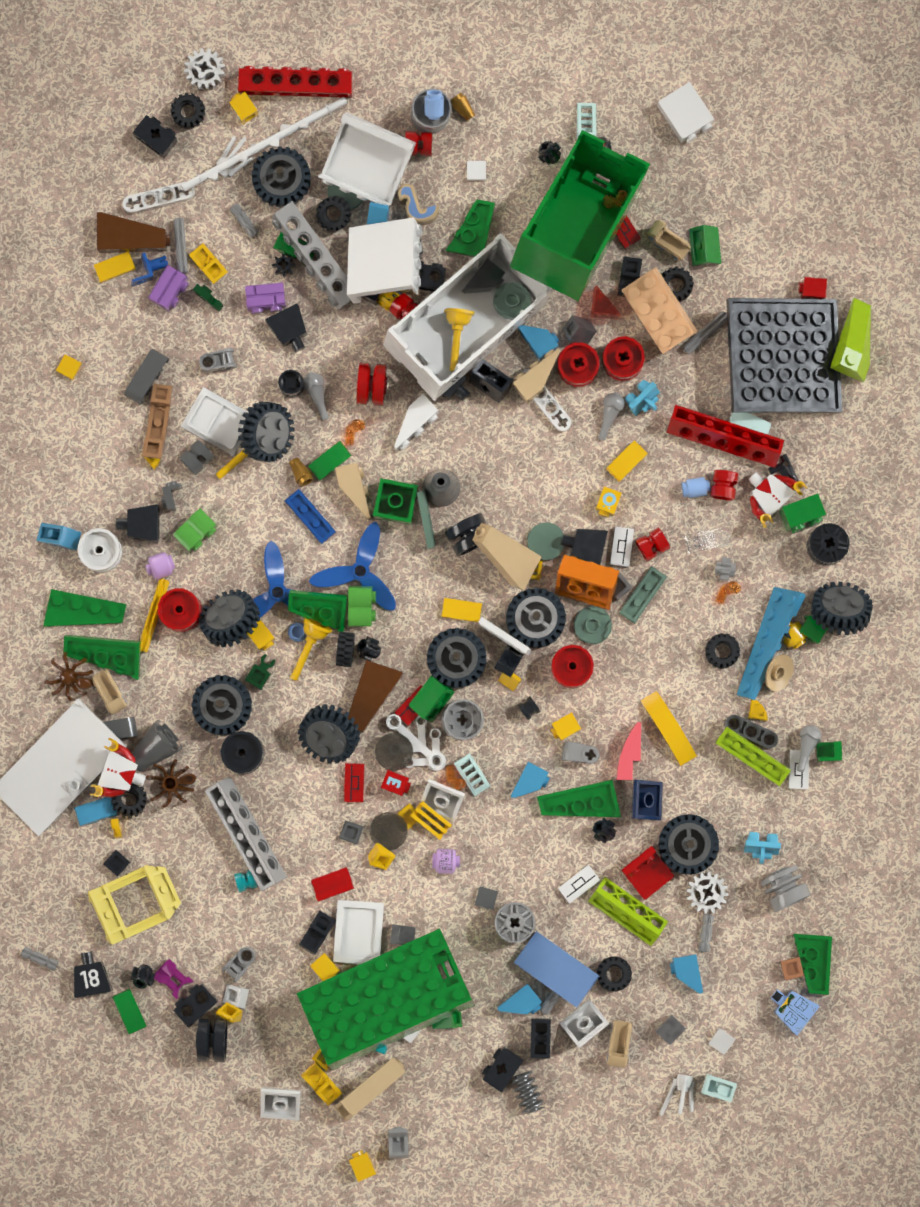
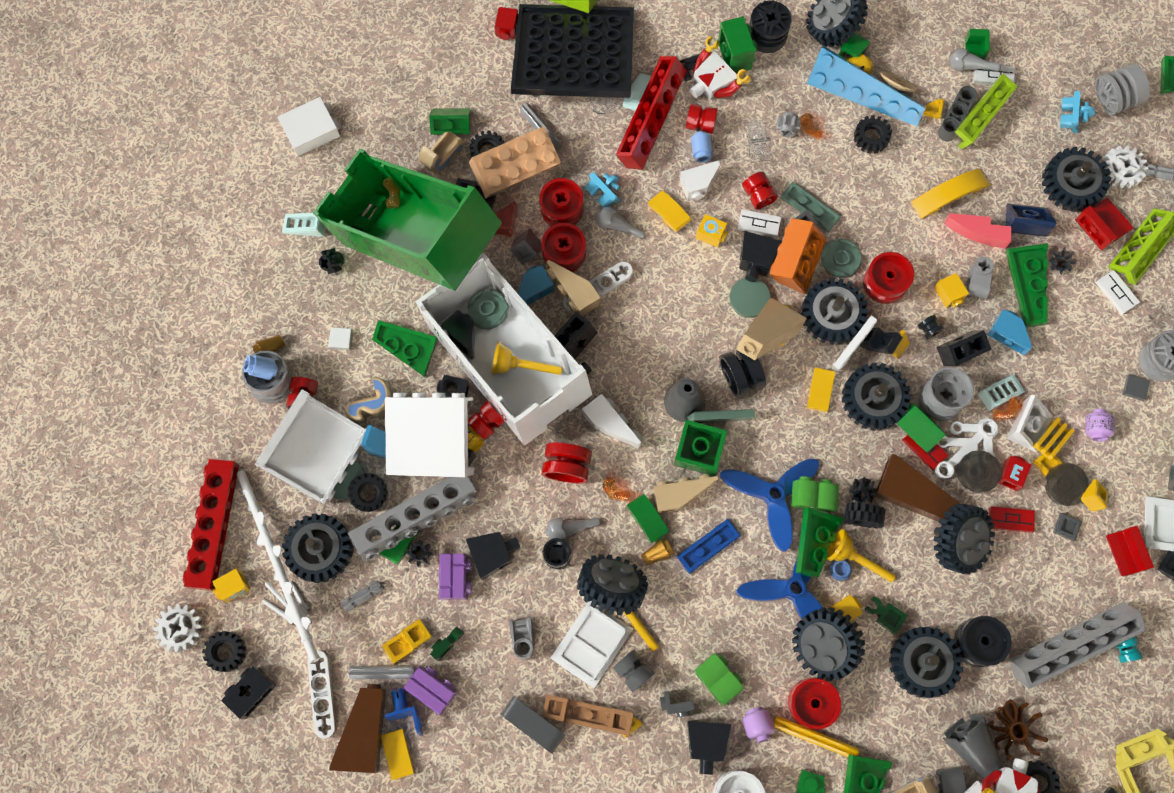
camera: 85 degrees left, 10 degrees down
(508, 736) = (963, 348): none -> black brick
(659, 487) = (698, 180): none -> white slope

